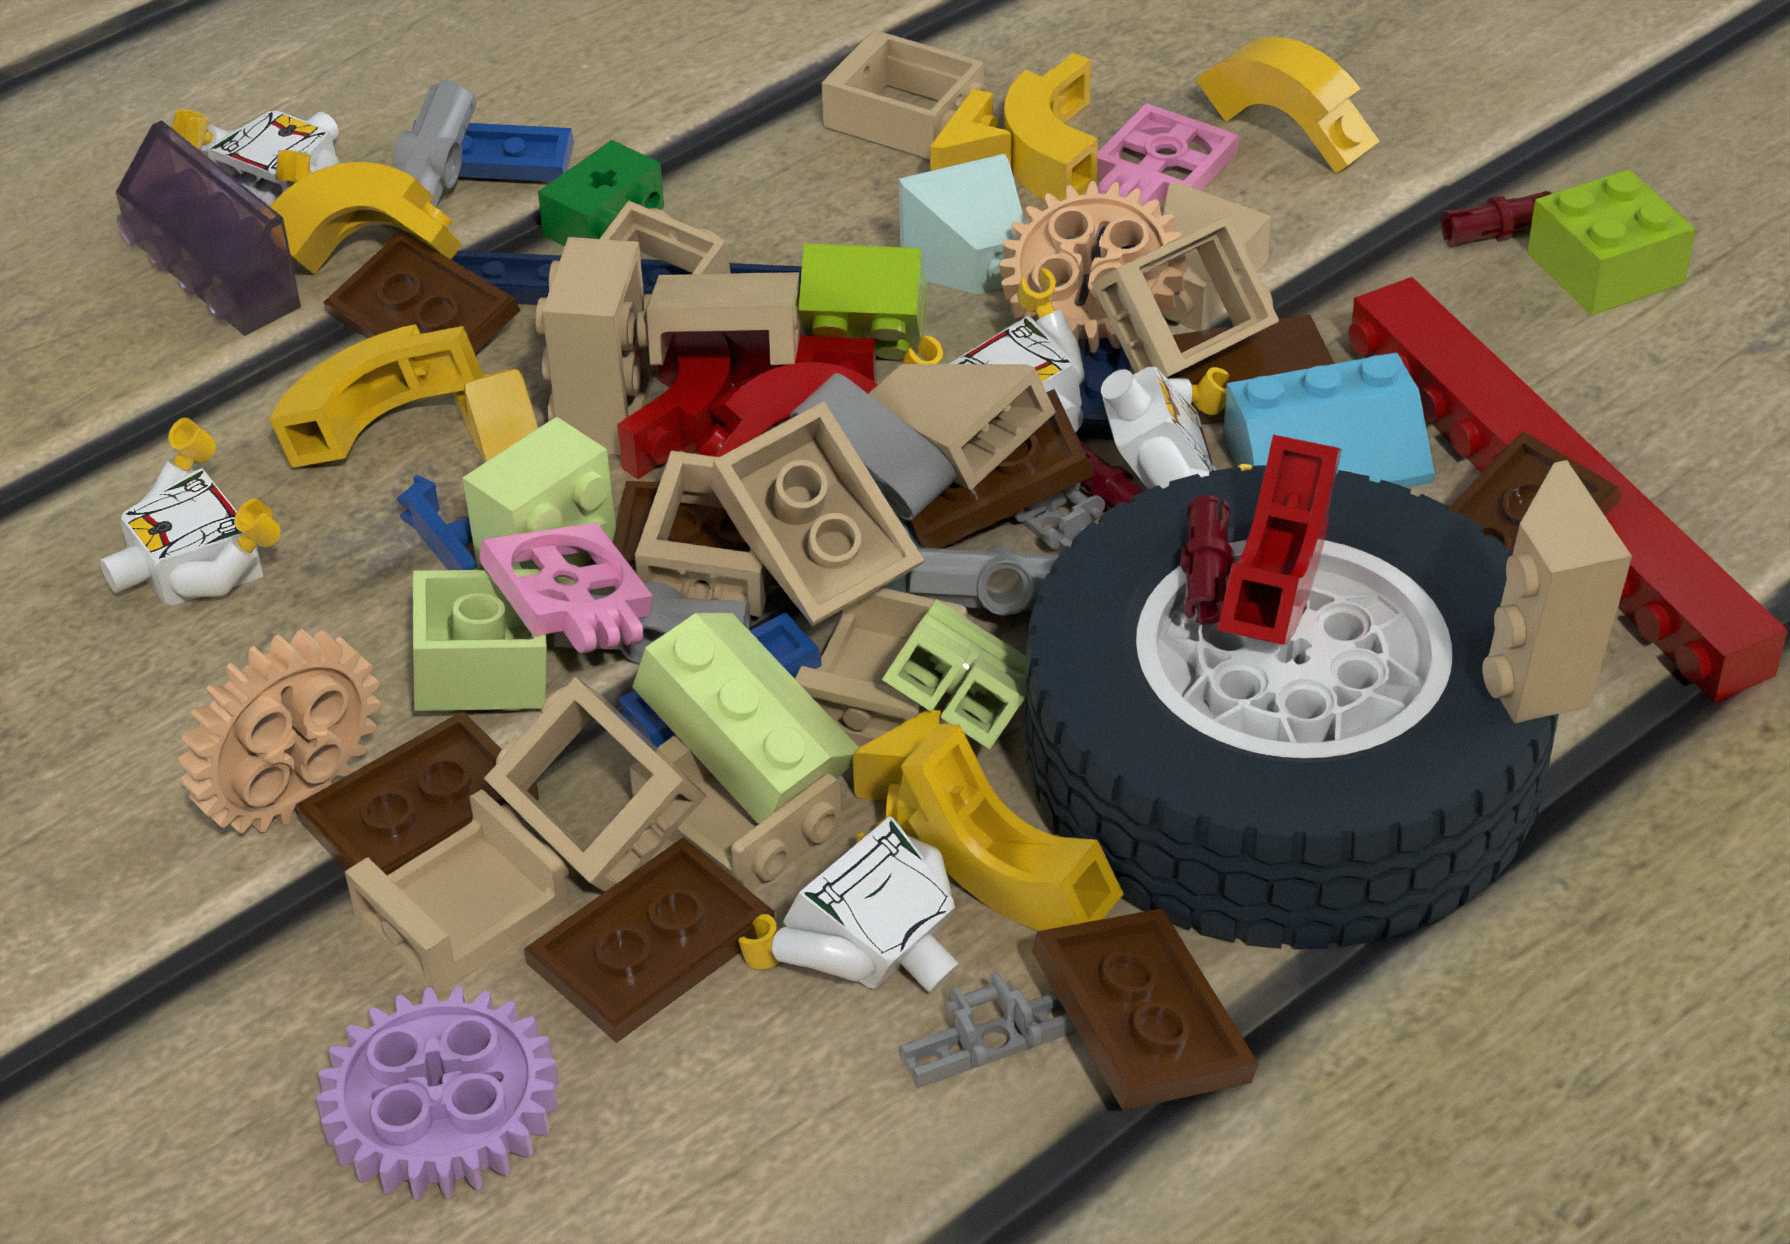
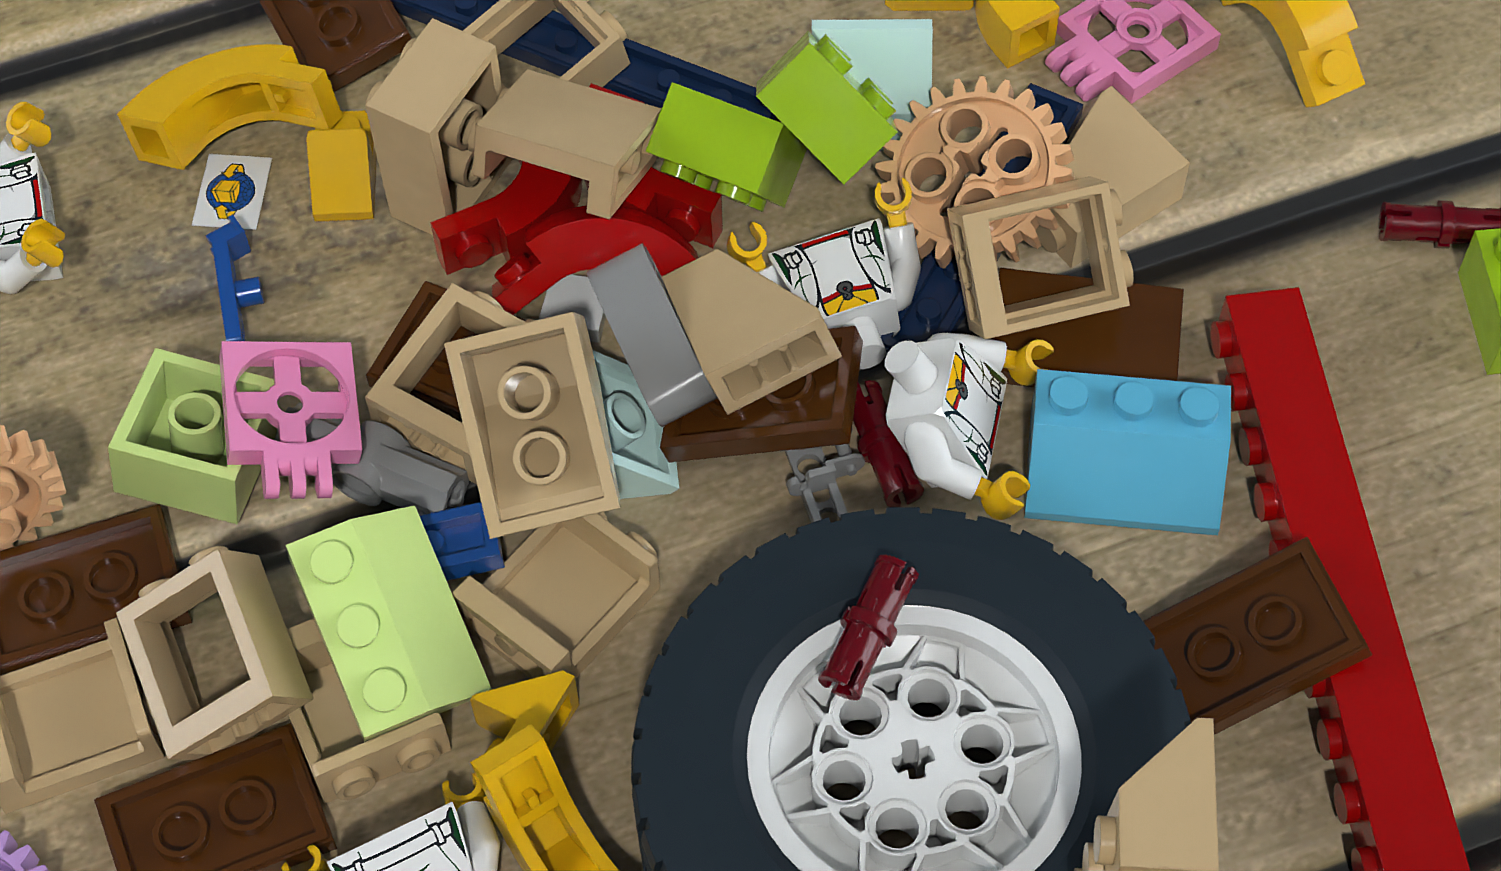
camera: 20 degrees right, 15 degrees up
(391, 467) = (232, 187): none -> white sticker
(541, 484) = (316, 292): yellowish green brick -> none
(959, 235) = (827, 106): none -> lime brick
(963, 576) = (684, 517): light grey piece -> none
(968, 665) = (616, 622): yellowish green hips -> none
(1284, 544) = (941, 653): red arch -> none

